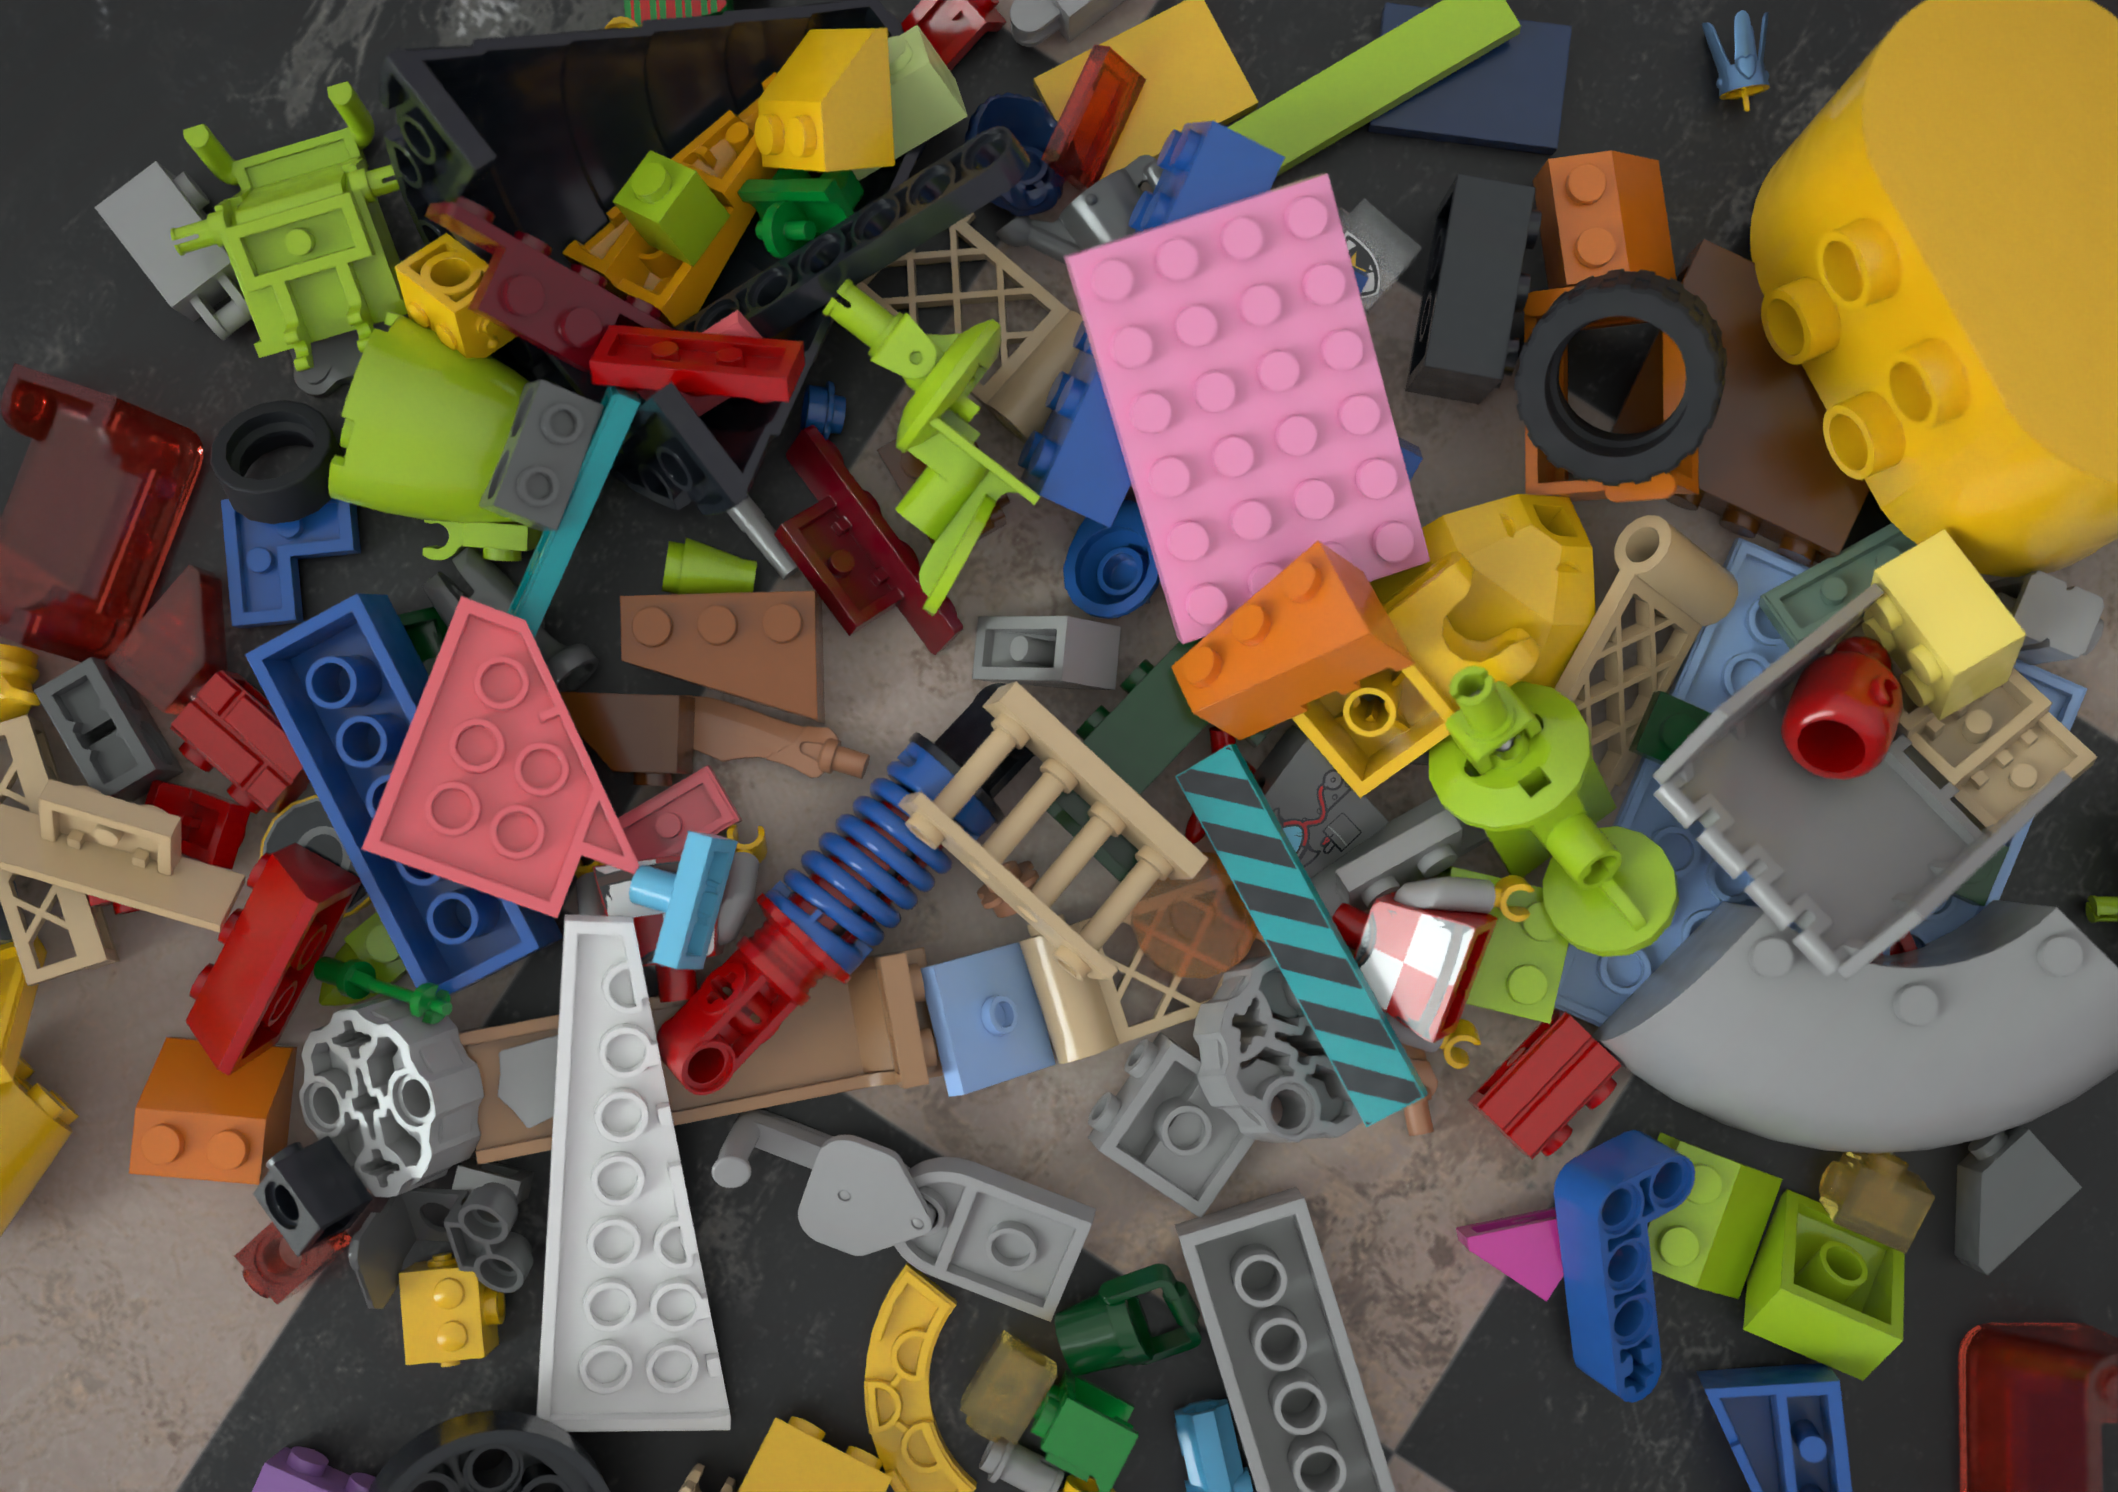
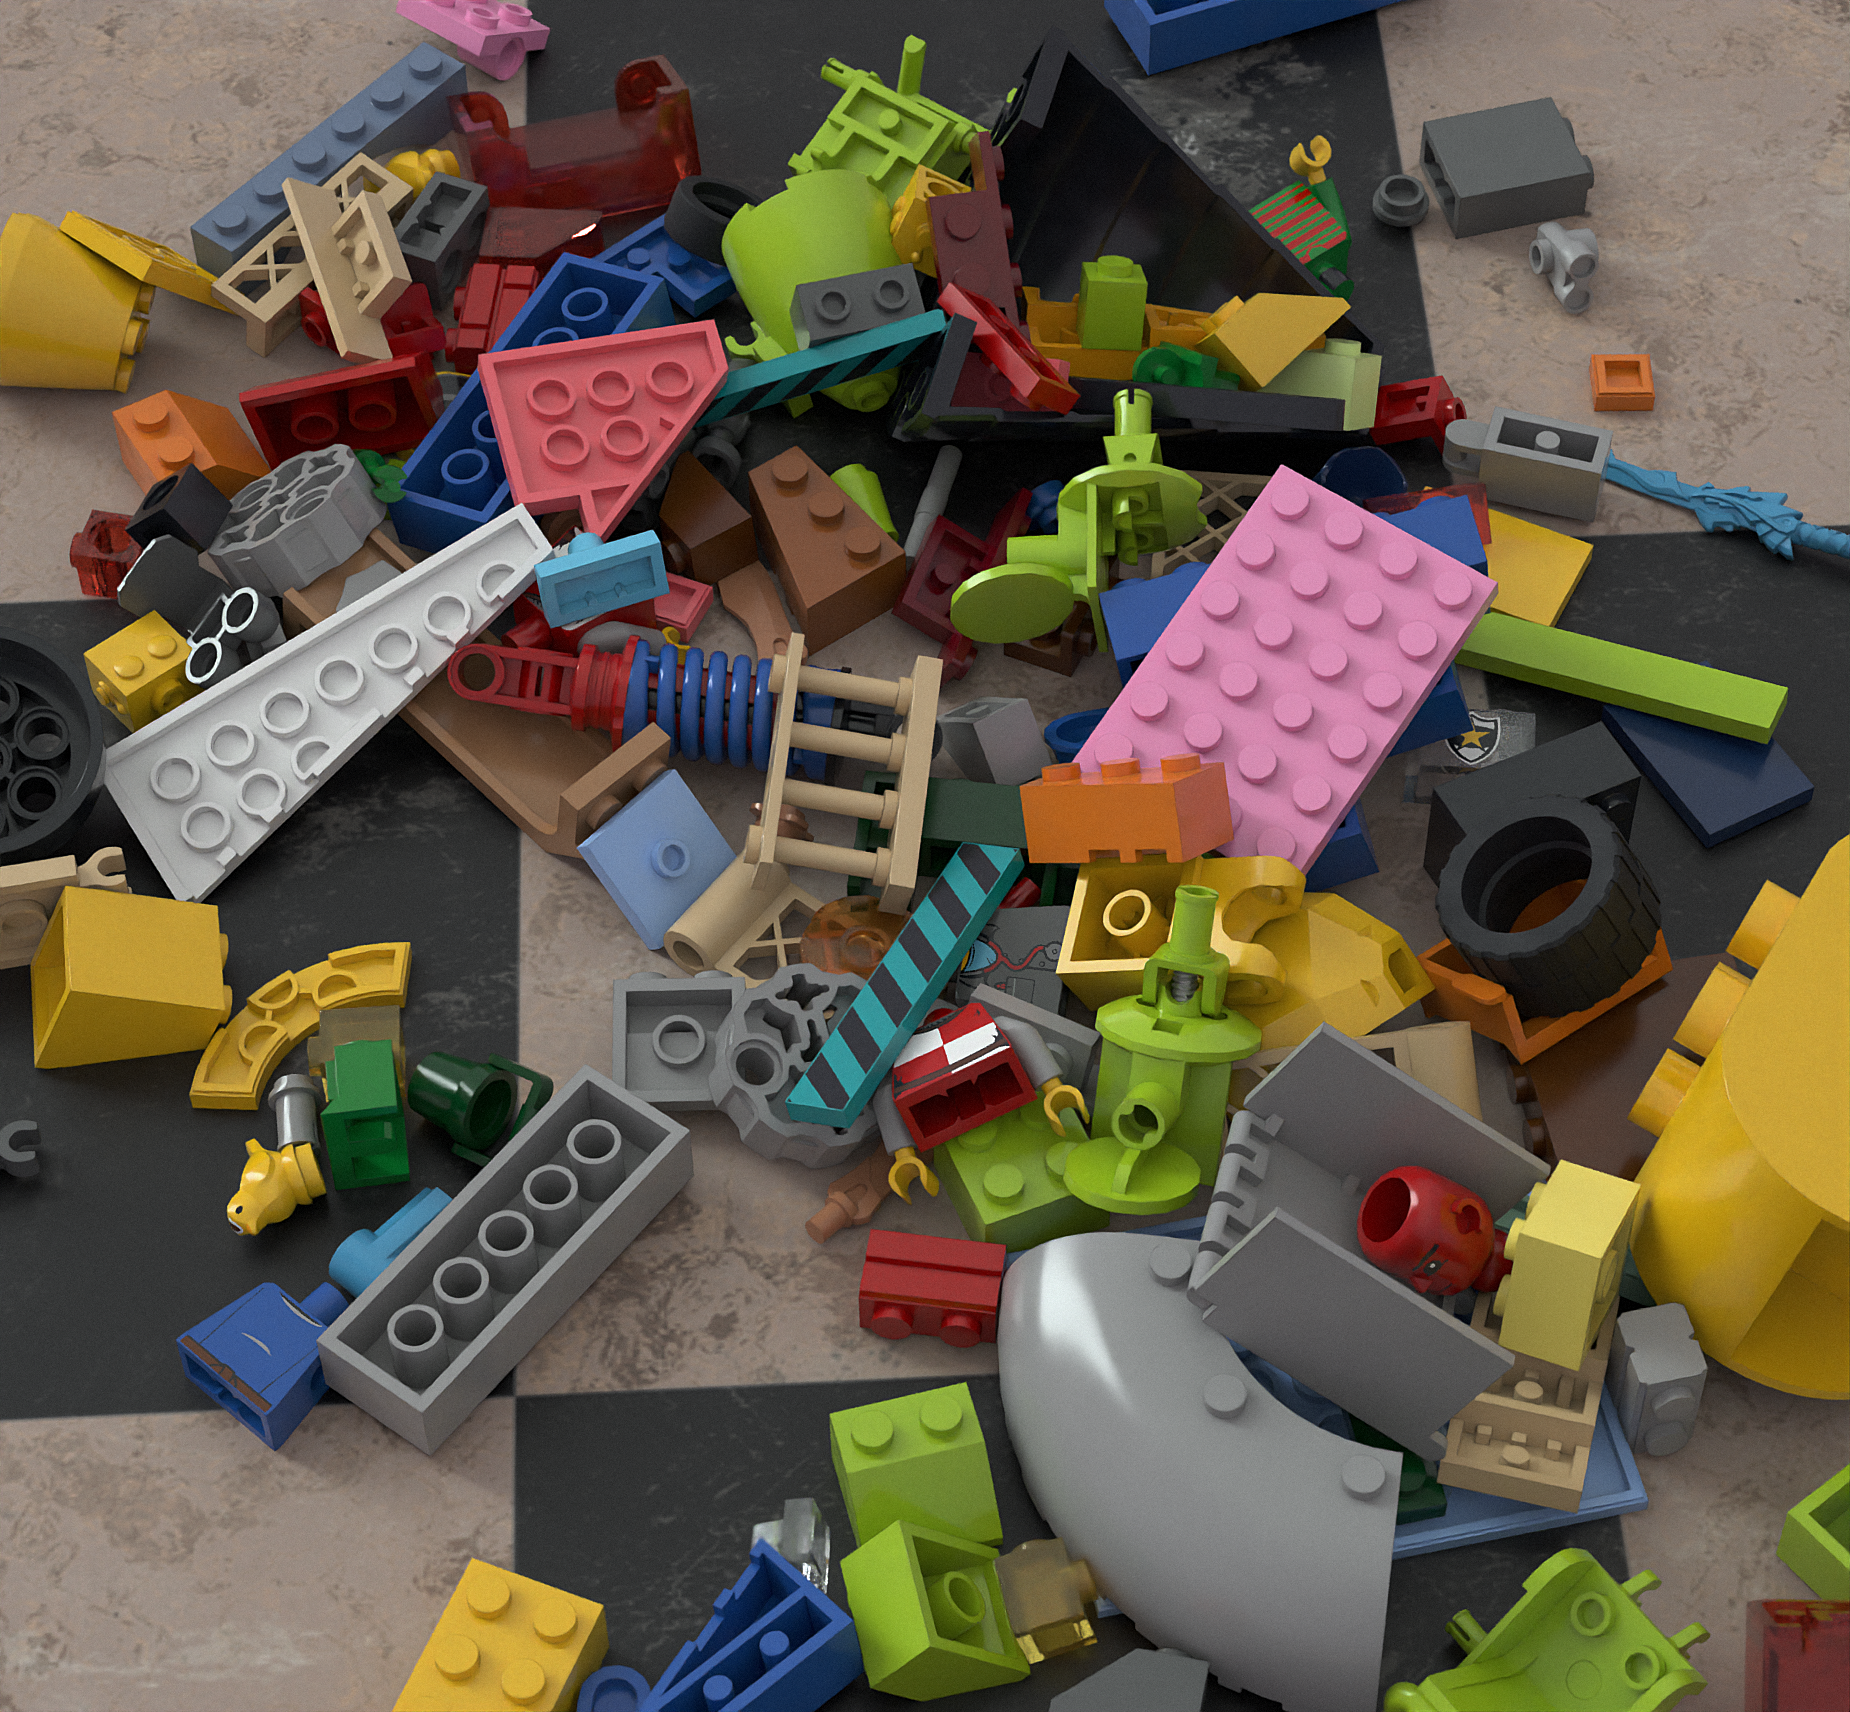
camera: 60 degrees right, 35 degrees down
(190, 283) = (810, 97): light grey brick -> none
(862, 1198) = (479, 932): light grey plate -> none
(1520, 1247) = (787, 1365): dark pink slope -> none
(1602, 217) = (1699, 882): orange slope -> none
(1606, 1256) = (814, 1407): blue beam -> none
(1699, 1348) = (800, 1539): none -> clear tile

